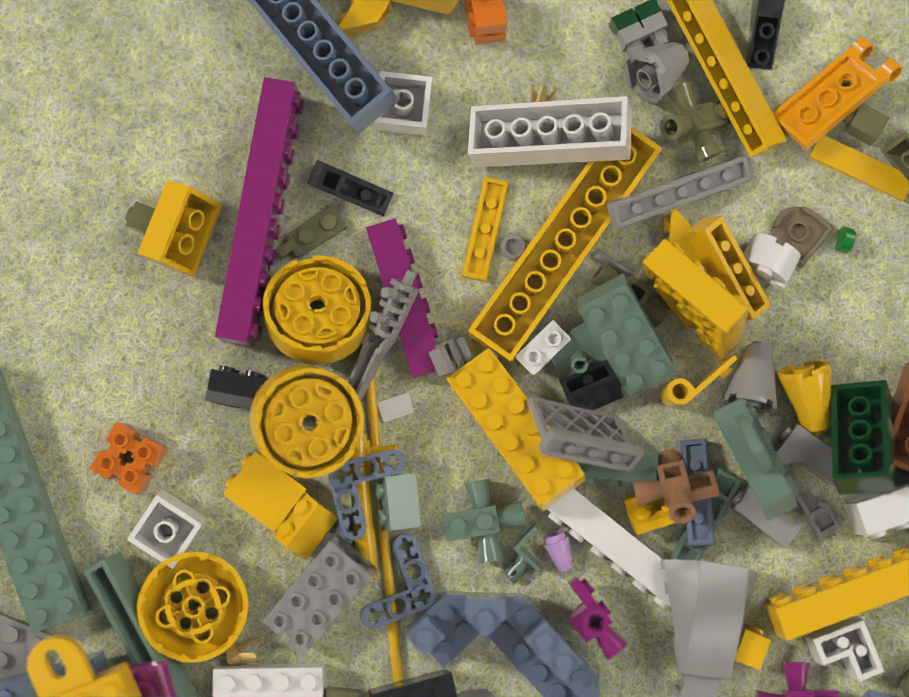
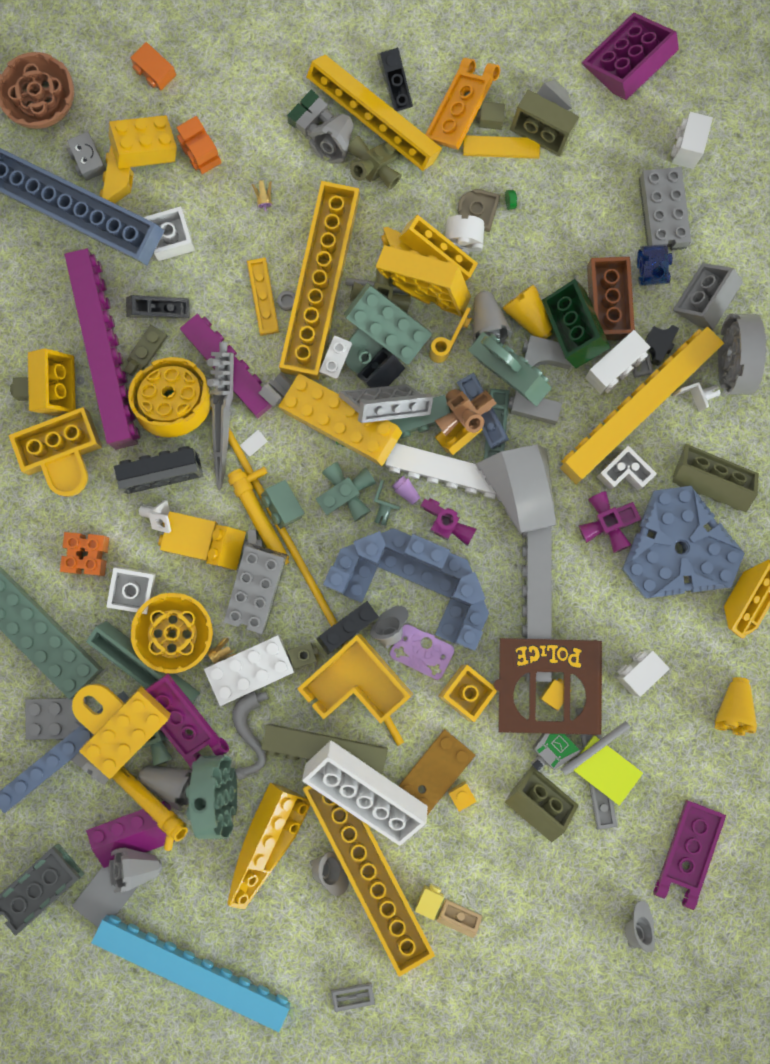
camera: 20 degrees left, 0 degrees up
(150, 315) = (58, 450): none -> yellow brick
(237, 450) = (157, 516): none -> white bracket
(279, 415) = (174, 478): yellow brick -> none
(350, 487) = (244, 506): sand blue beam -> none
(411, 585) = (316, 557): sand blue beam -> none
(550, 132) = (277, 209): white brick -> none
(678, 191) = (383, 213): light grey tile -> none
(752, 647) = (563, 498): yellow brick -> none
(818, 515) = (571, 391): light grey tile -> none

